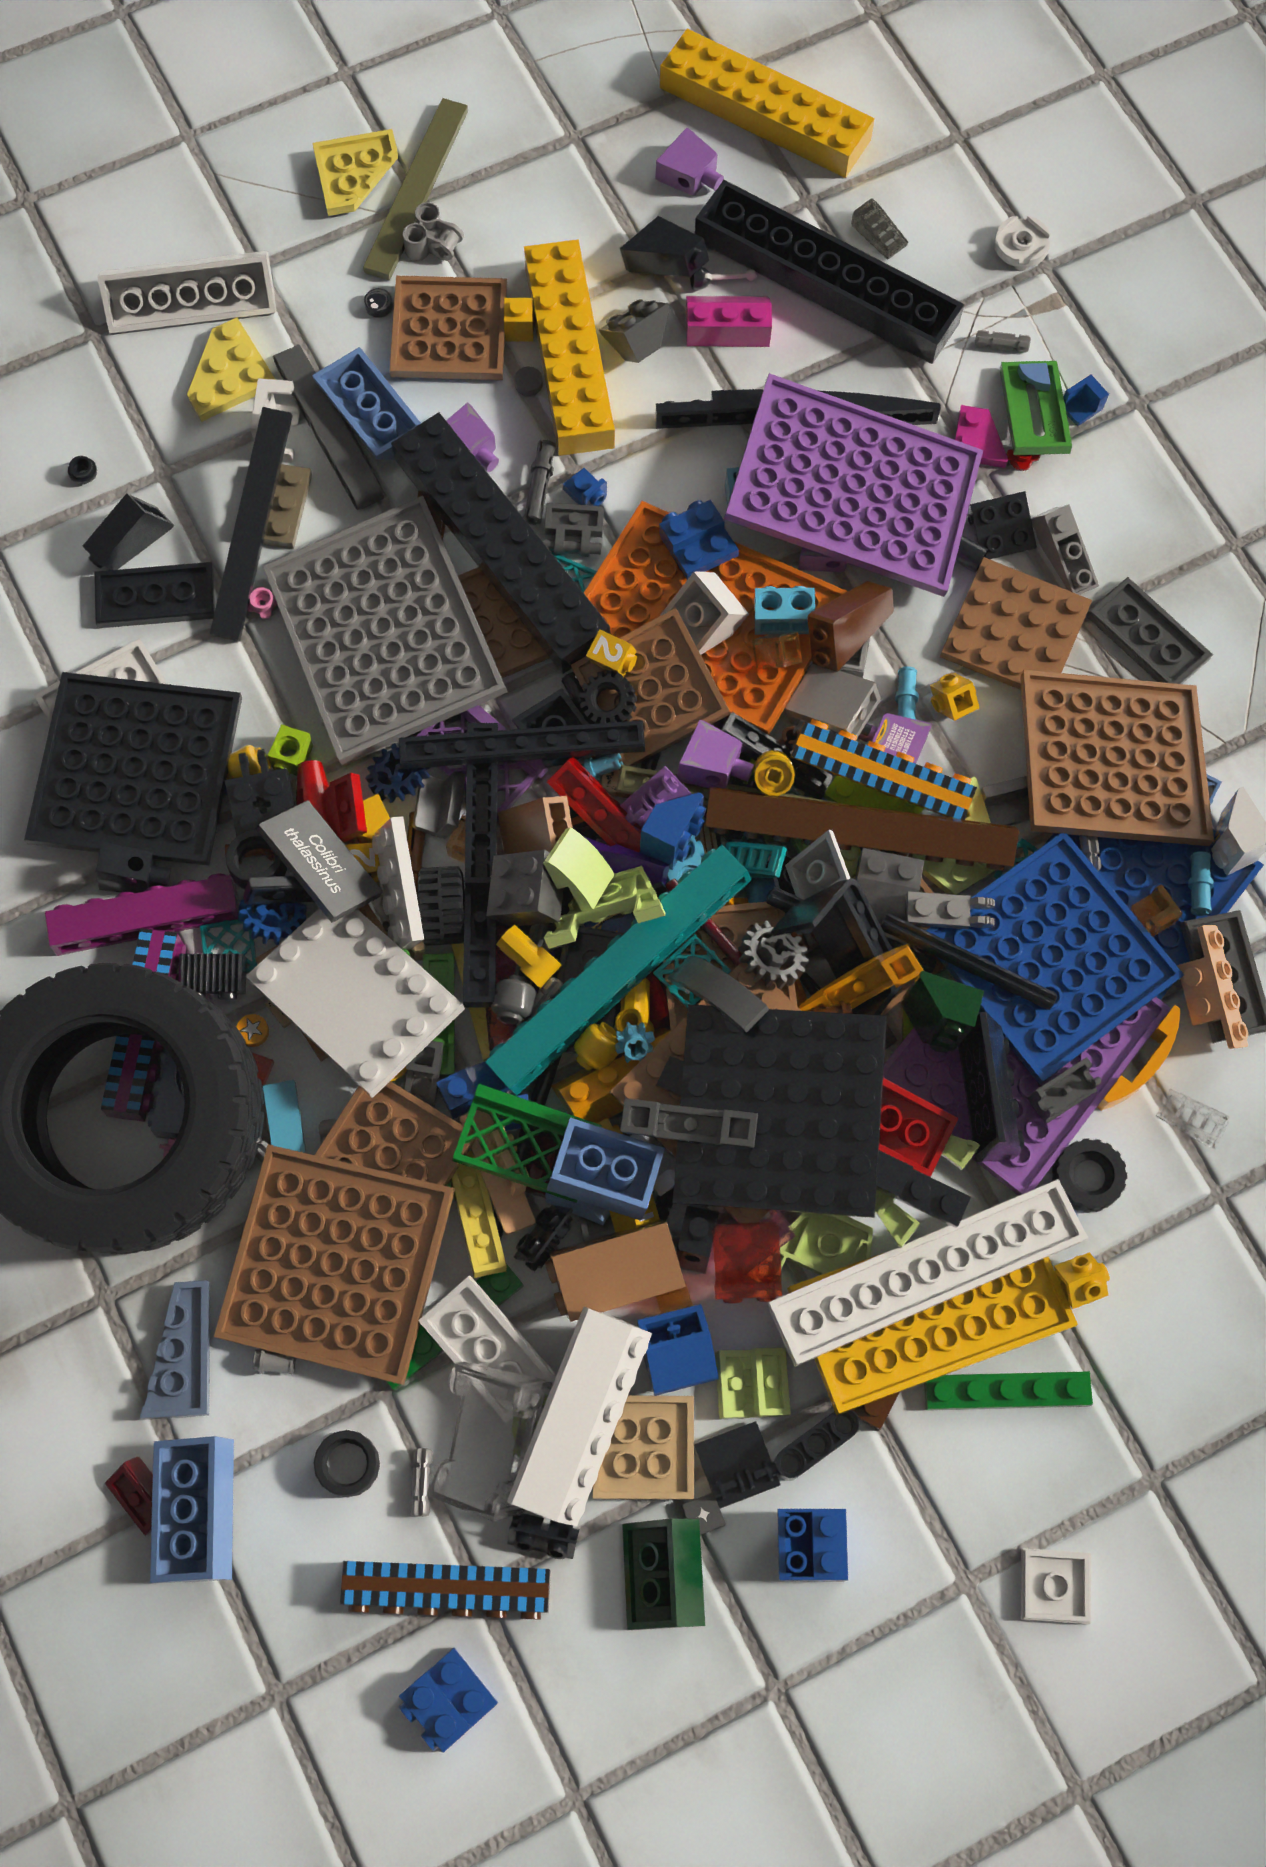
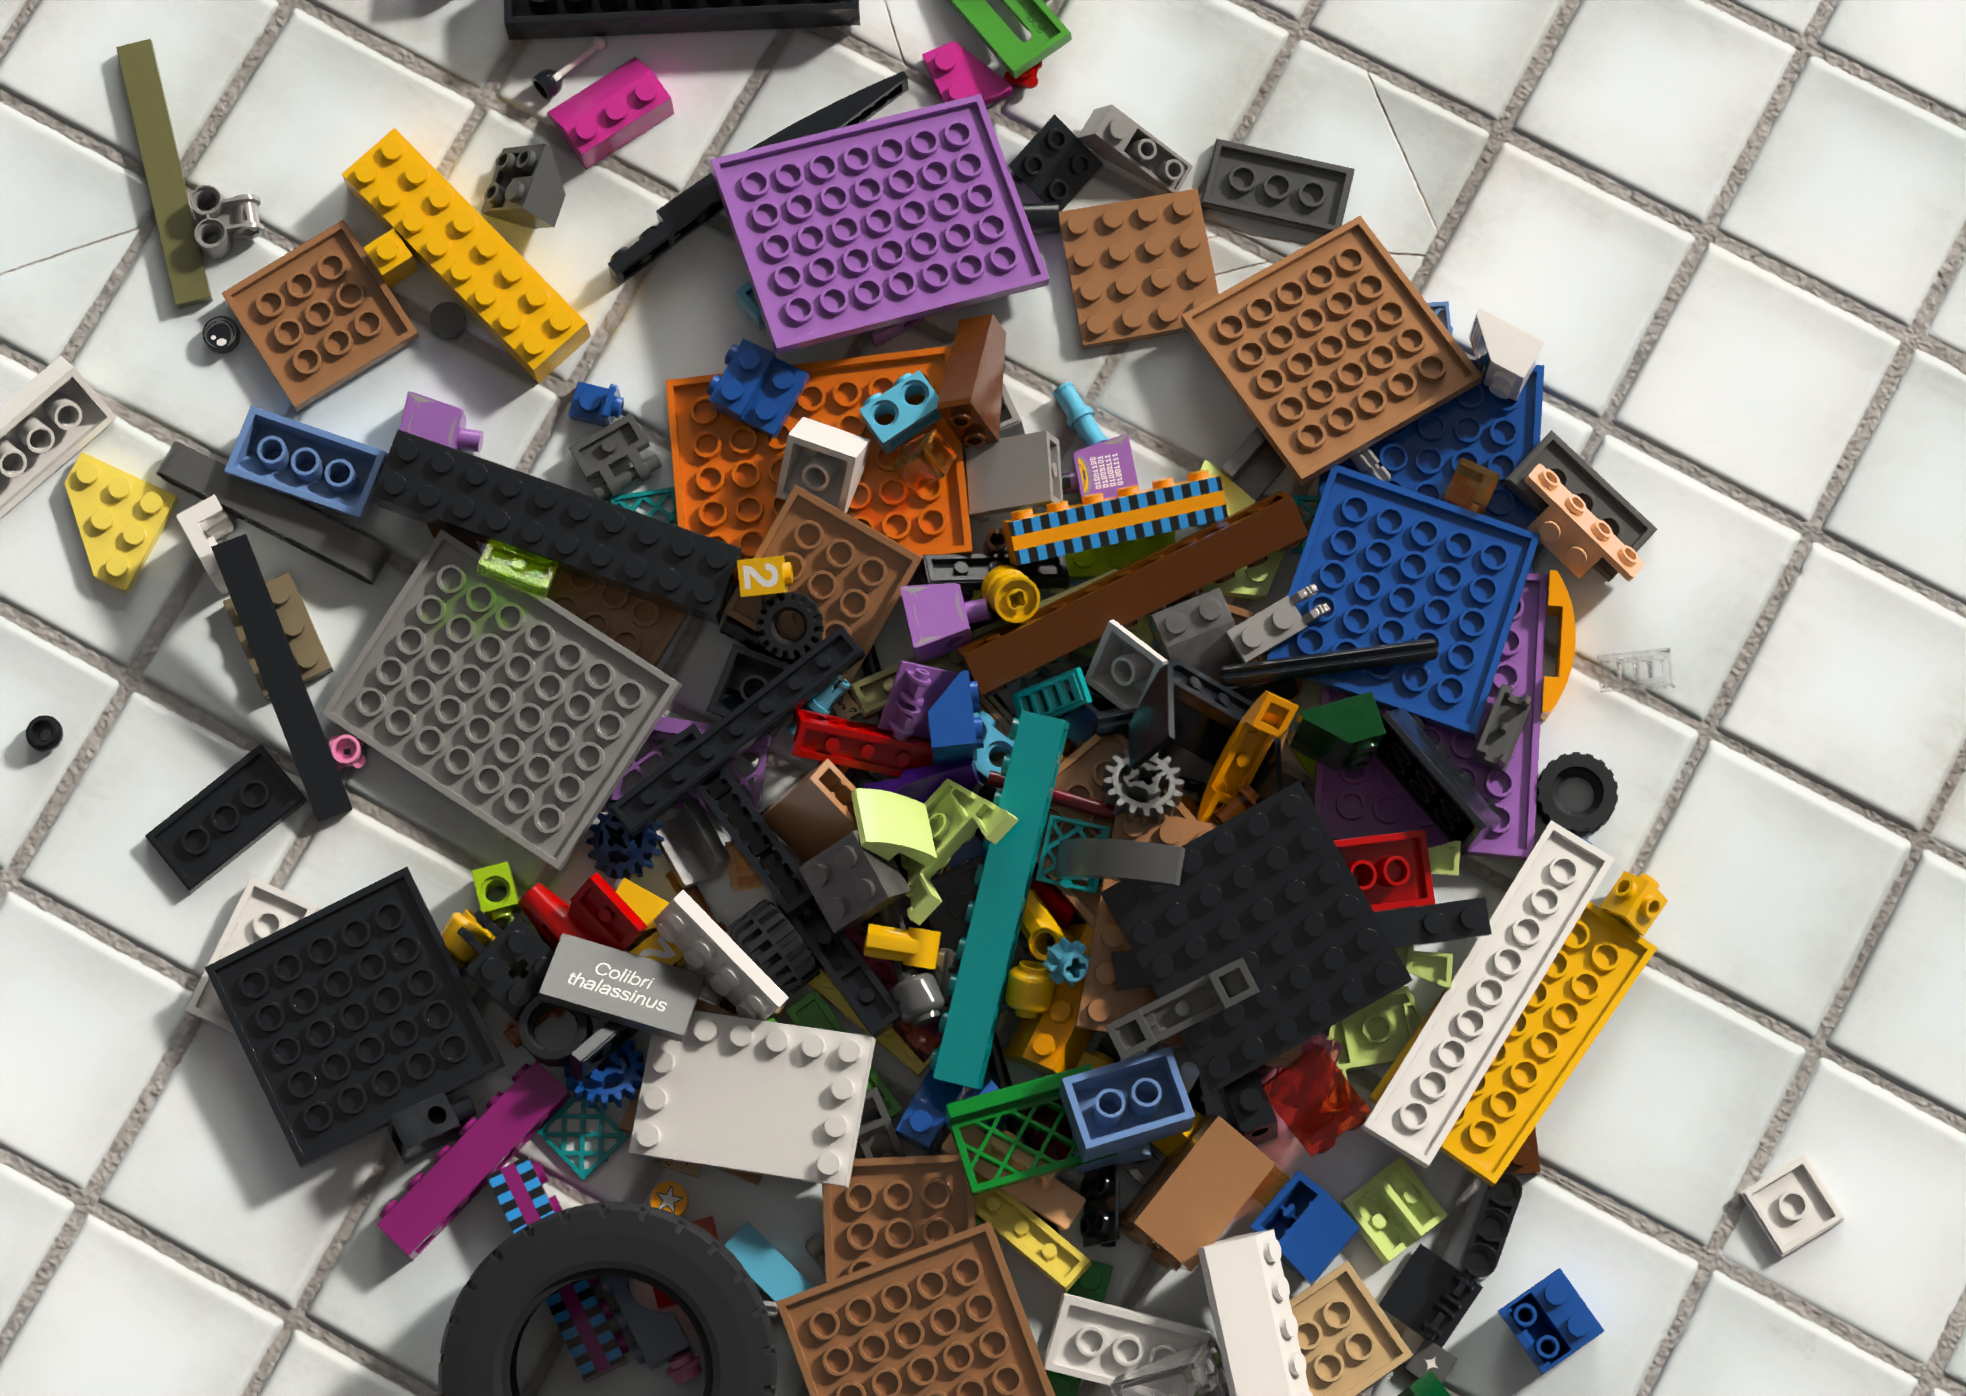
camera: 30 degrees left, 5 degrees up
(126, 533) = (150, 773): black slope -> none
(214, 974) = (591, 1172): black brick -> none
(353, 167) = (78, 195): light yellow plate -> none
(452, 547) = (517, 568): none -> clear neon green plate
(541, 472) = (540, 423): dark grey pin -> none
(664, 250) = (492, 78): black slope -> none
(954, 696) = (1129, 387): yellow brick -> none
(1009, 1391) = (1634, 1053): green plate -> none
(1200, 884) = (1497, 428): medium azure pin -> none

